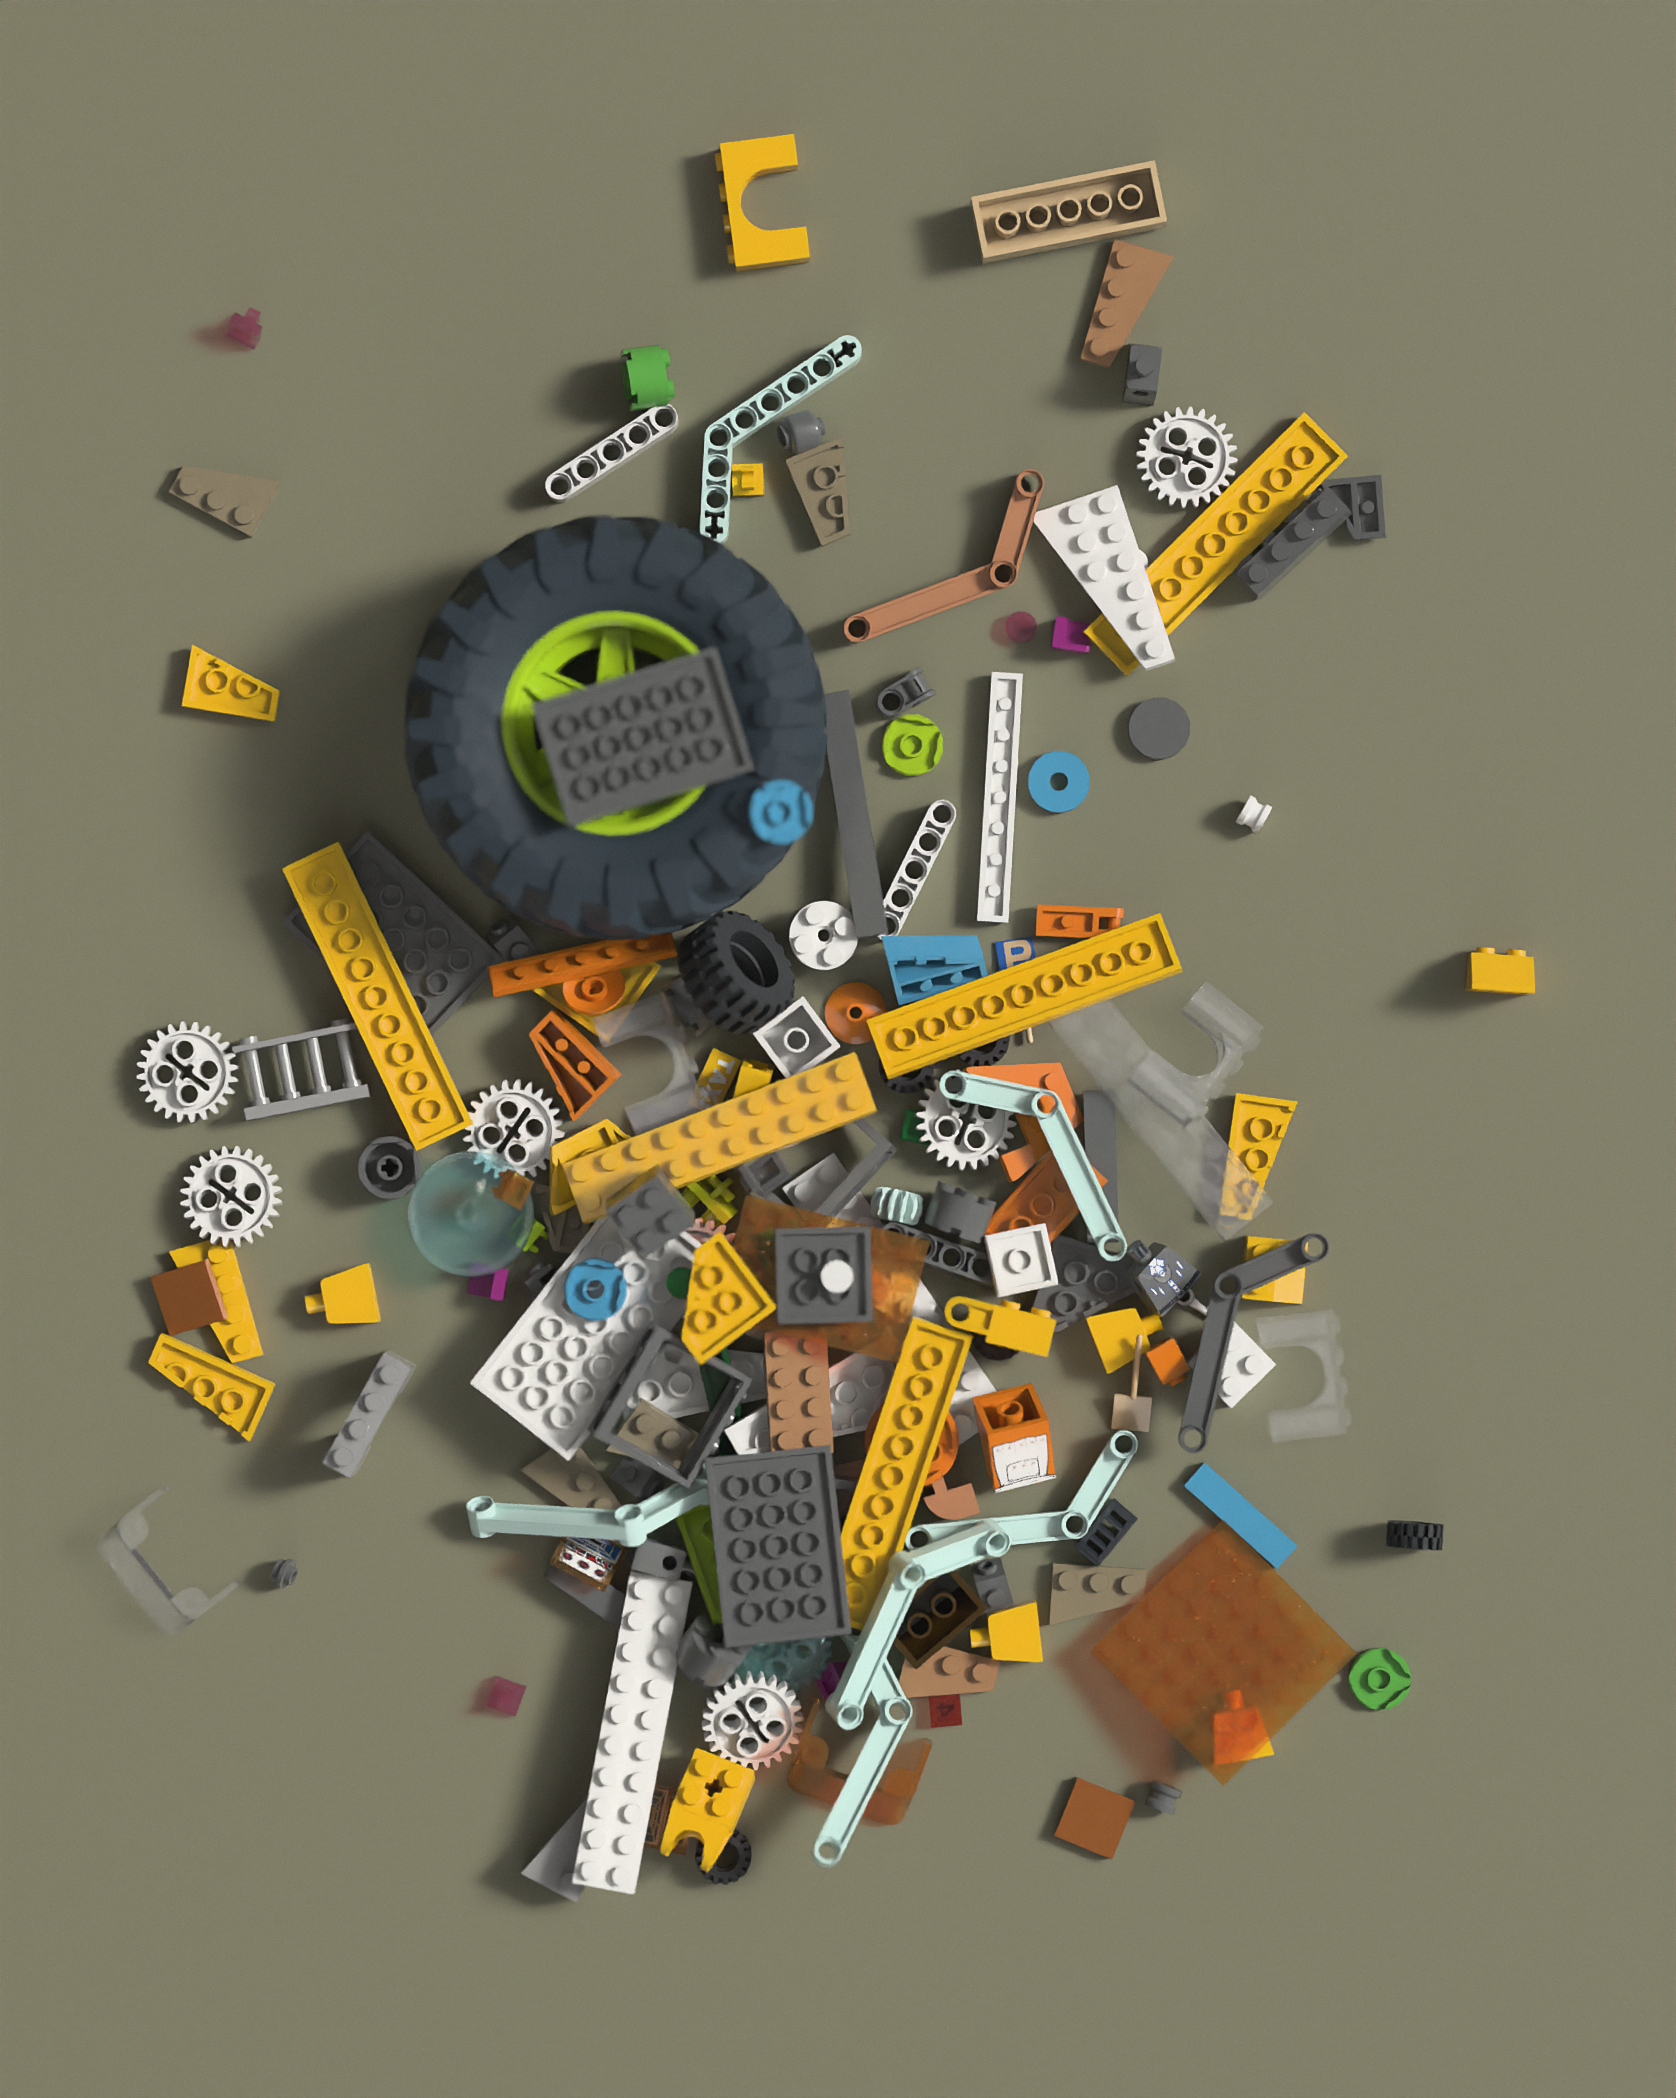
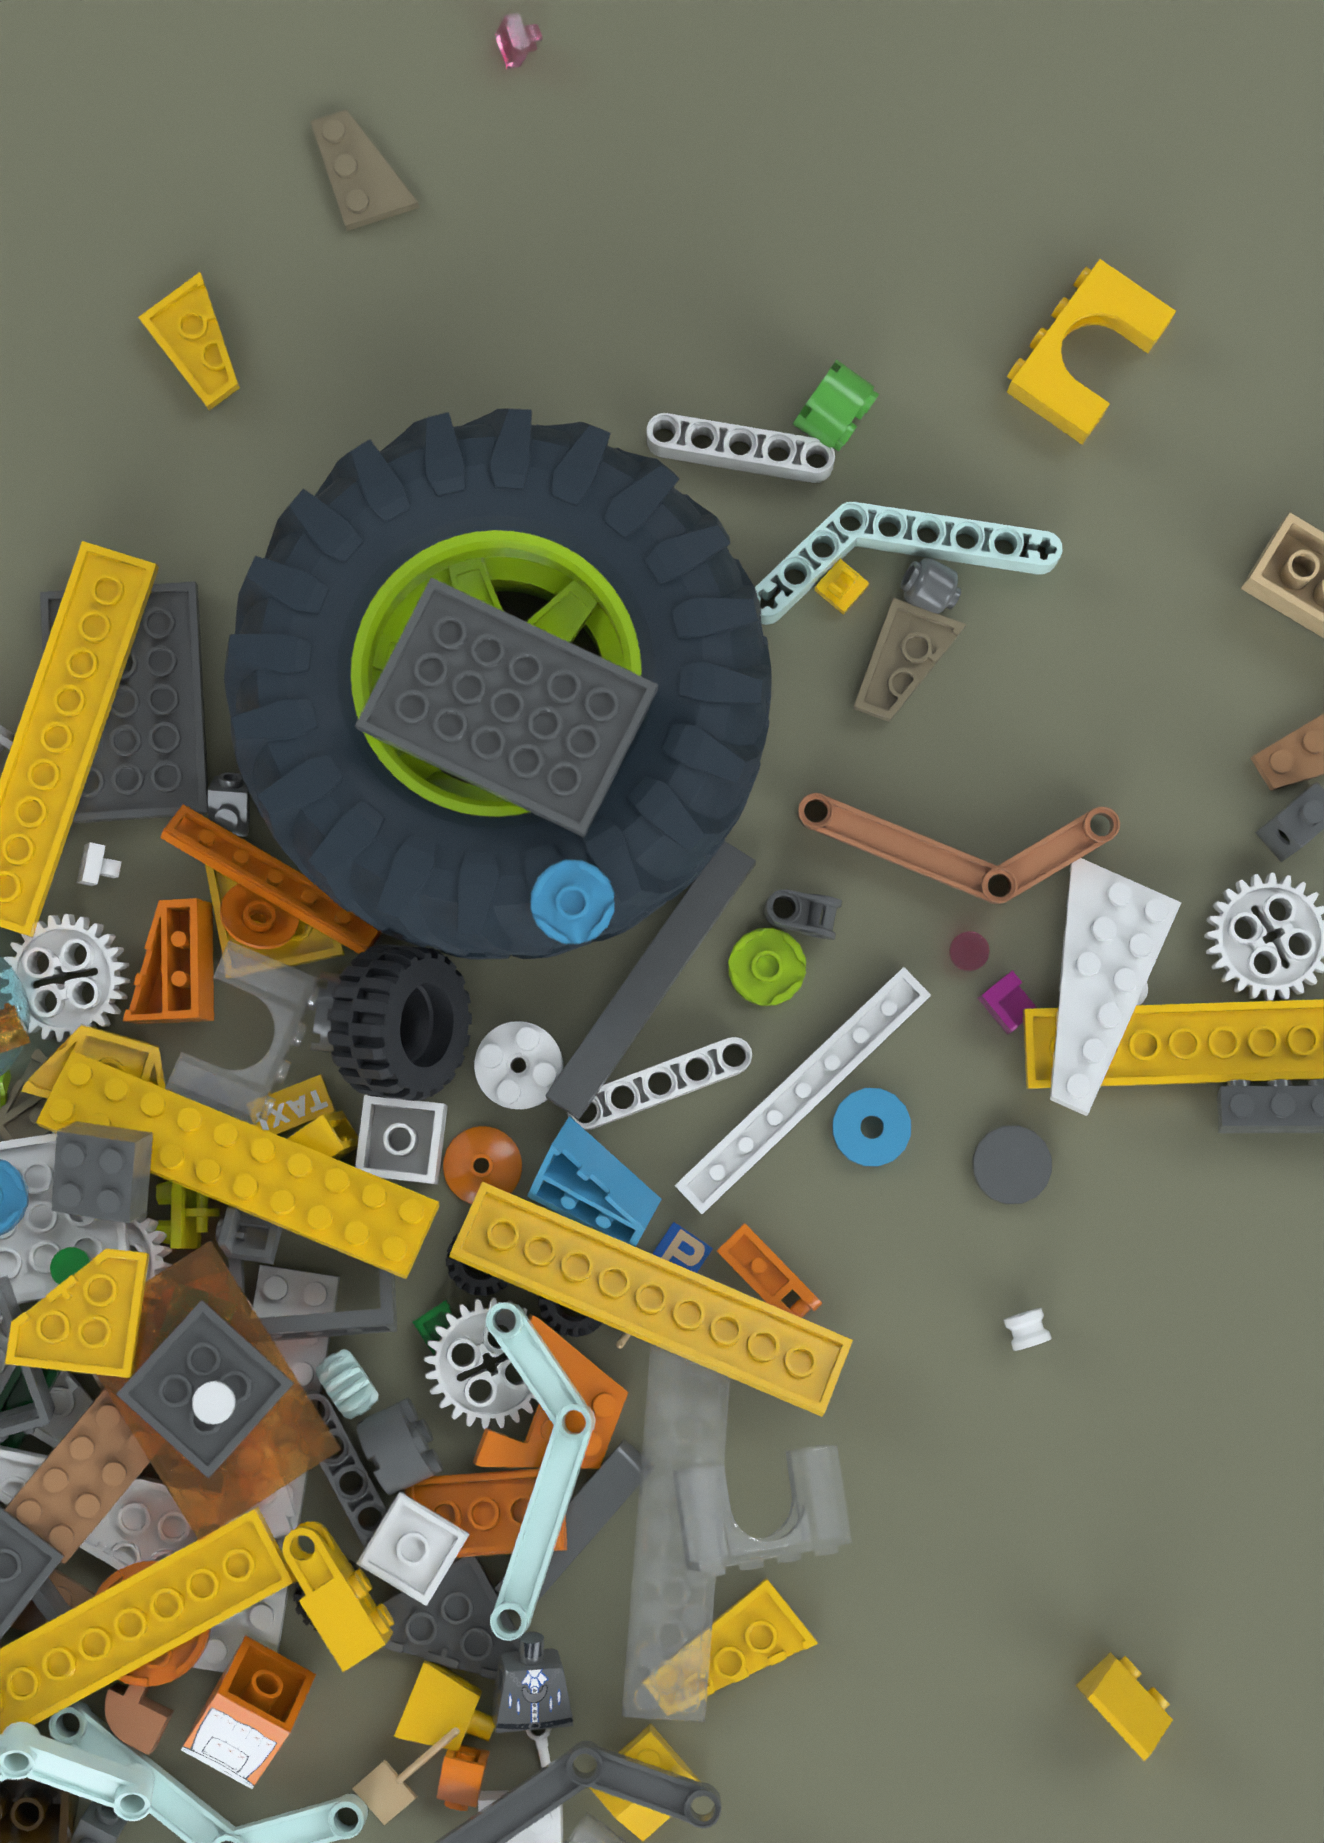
camera: 45 degrees right, 5 degrees down
(467, 1050) = (94, 864): none -> white tile

